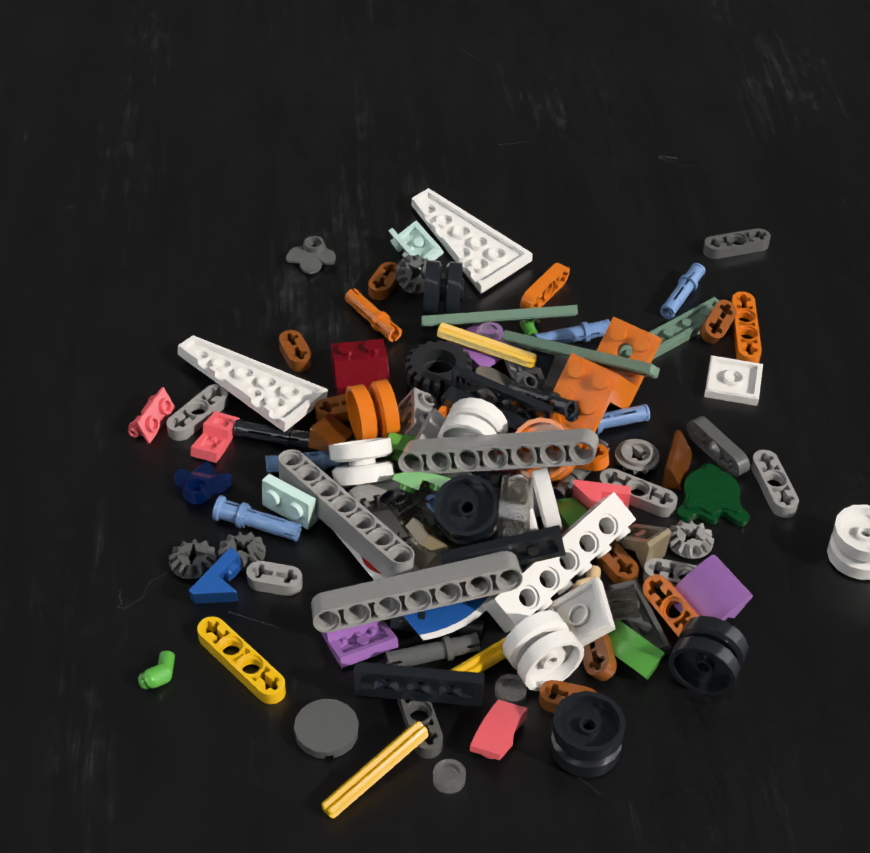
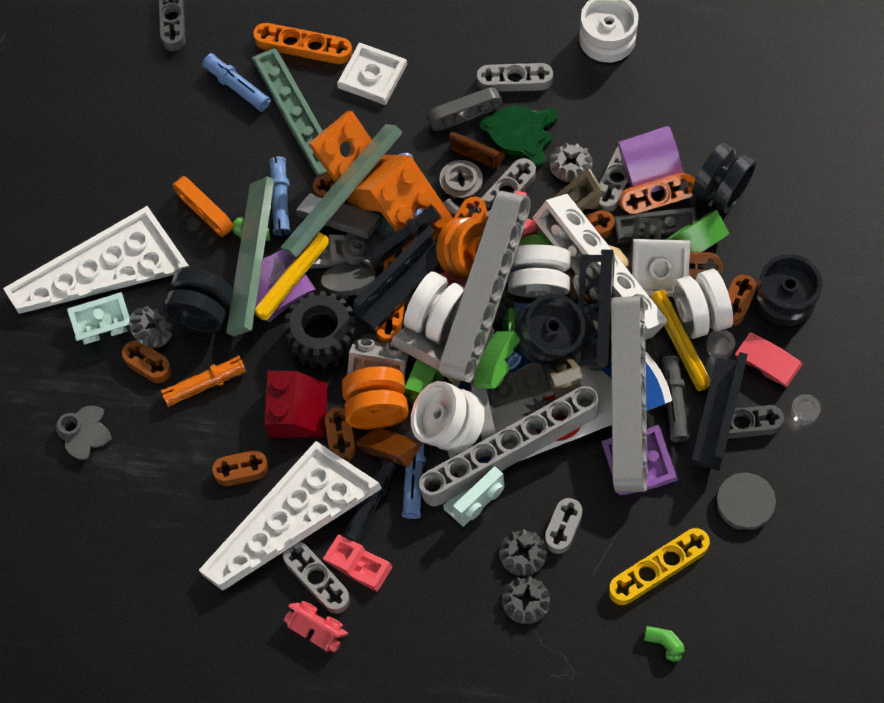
camera: 75 degrees left, 20 degrees up
(201, 483) = (418, 581): clear blue plate -> none
(212, 585) = (572, 581): blue slope -> none
(243, 516) = (481, 544): medium blue pin -> none
(374, 769) = (801, 464): yellow axle -> none
(515, 505) = (568, 281): clear smoke slope -> none
(714, 318) = (293, 63): dark orange beam -> none

